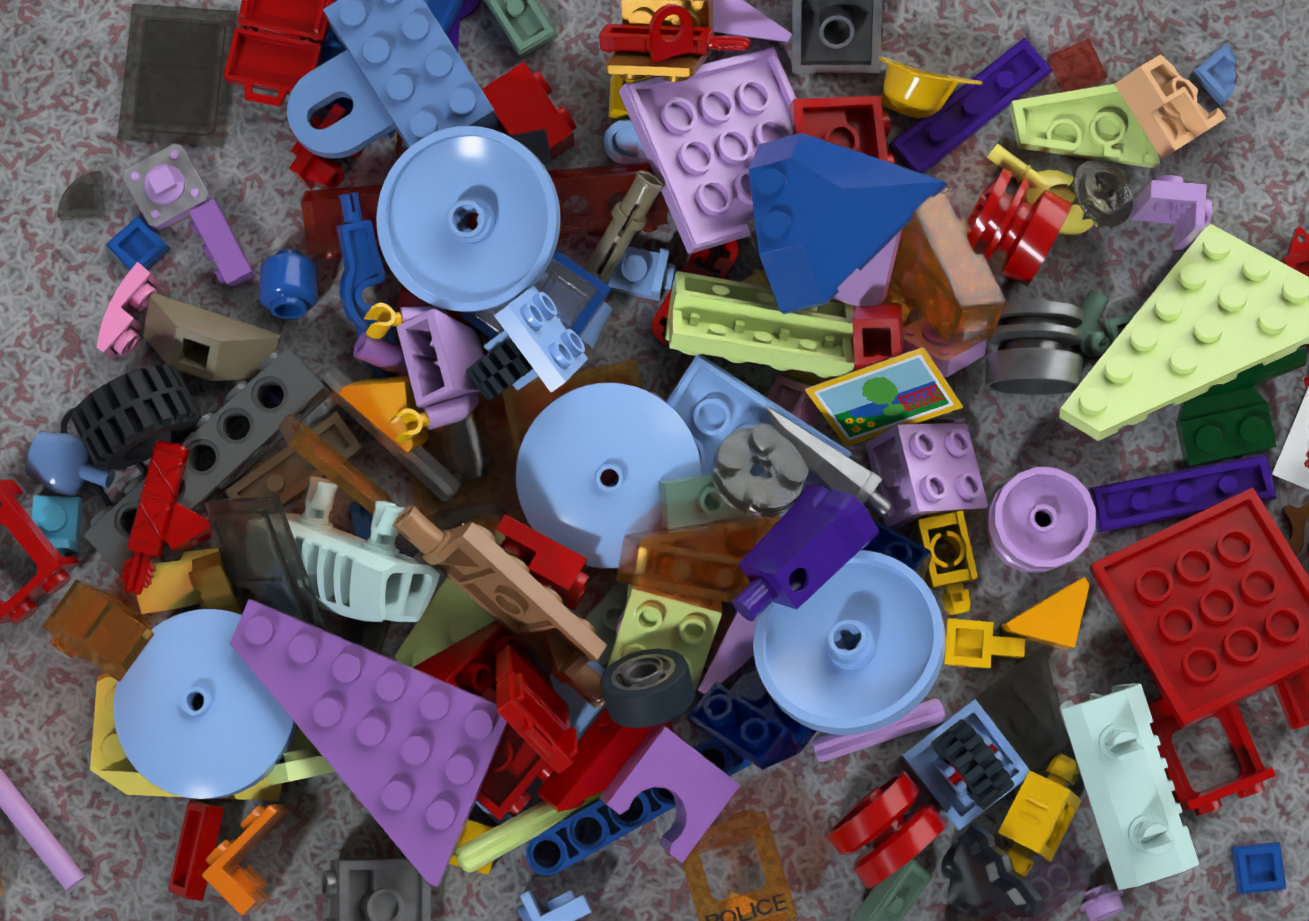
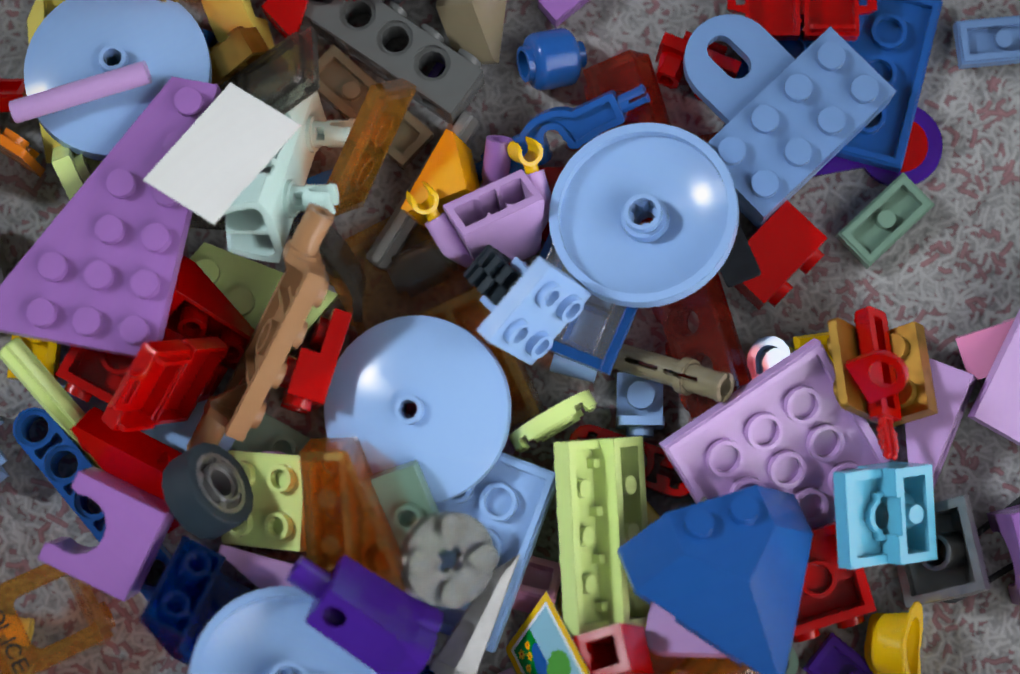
camera: 80 degrees right, 0 degrees up
(223, 739) = (80, 92): none -> lavender piece
(322, 603) = (222, 153): none -> white sticker
(644, 350) = (553, 420): none -> yellowish green tile
(796, 63) = (885, 514): none -> medium azure brick

